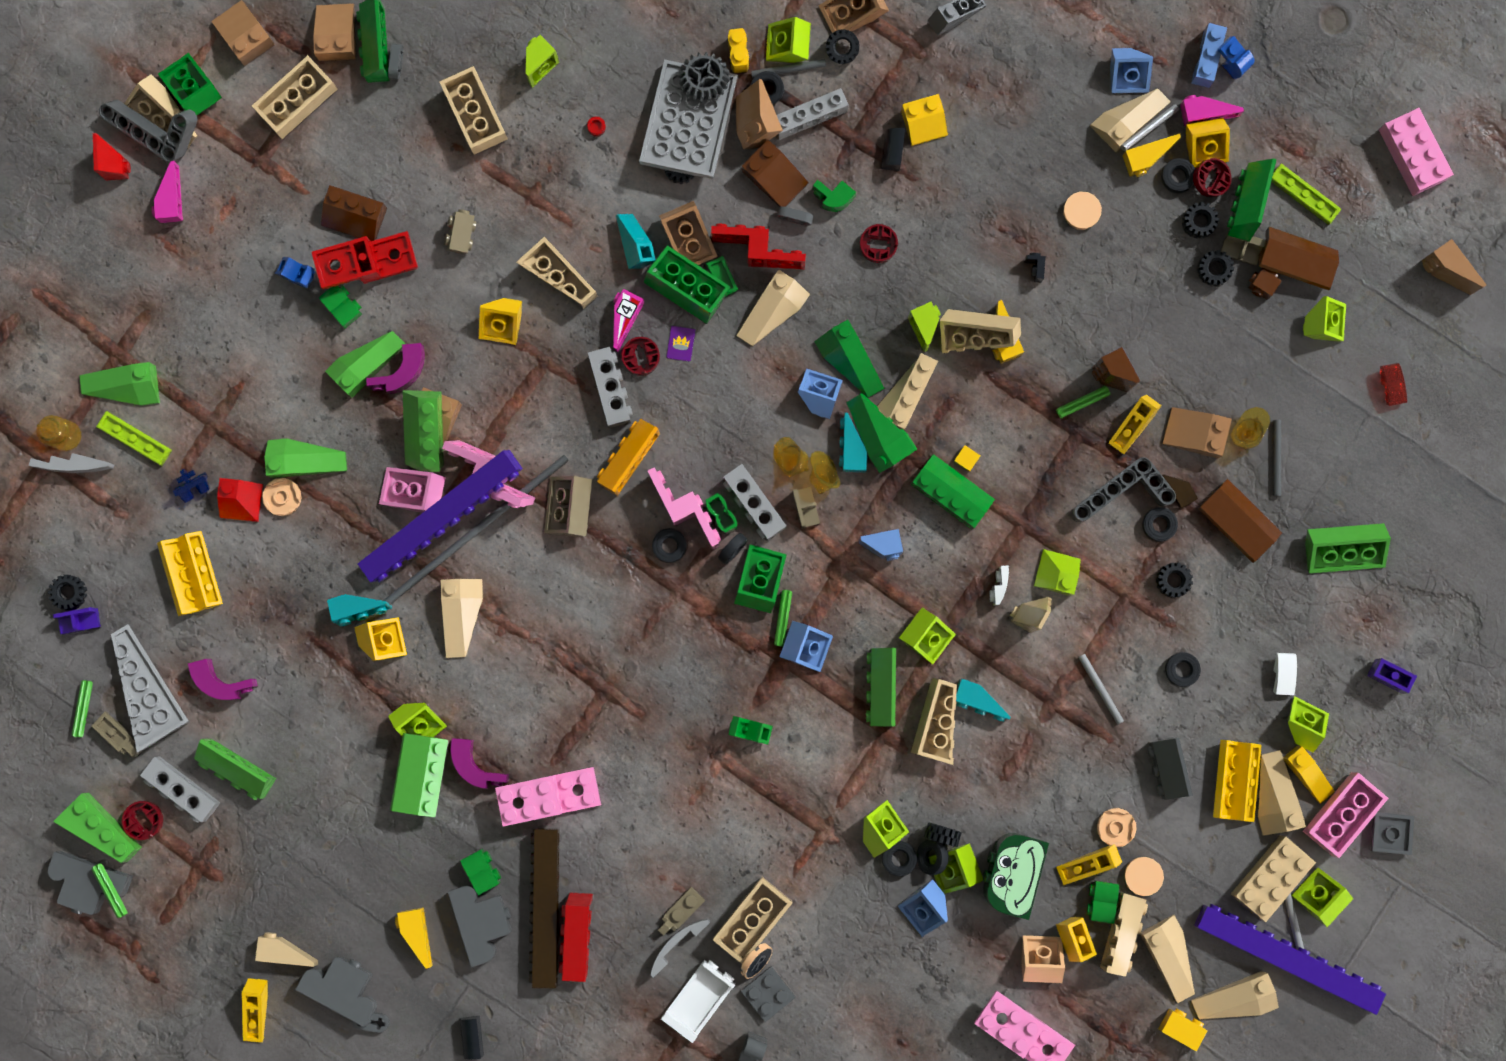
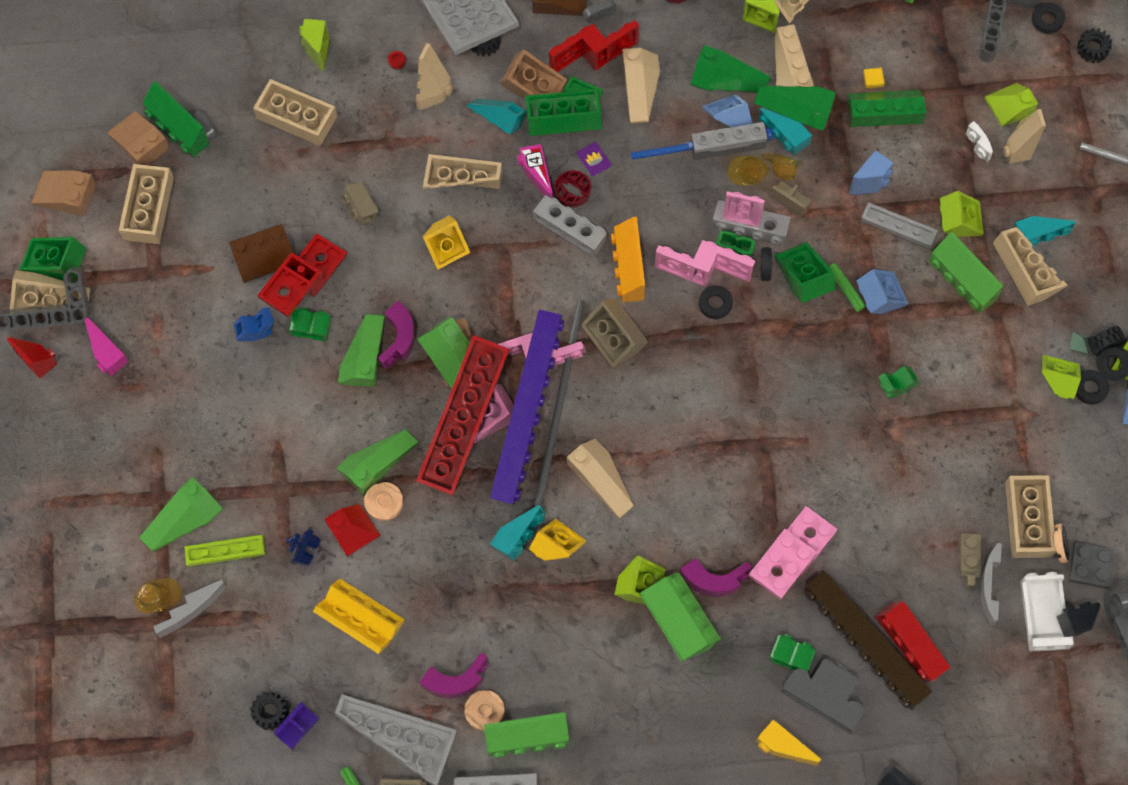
camera: 40 degrees left, 15 degrees down
(223, 722) = (484, 708): none -> light nougat tile
(386, 482) = (462, 415): none -> red brick
(599, 173) = (433, 80): none -> tan wedge
(714, 1028) = (1079, 620): none -> black slope
(751, 490) = (743, 209): none -> bright pink slope
(786, 411) = (718, 142): none -> piece
(870, 602) = (899, 225): none -> light grey plate
(925, 814) = (1079, 342): none -> sand green slope

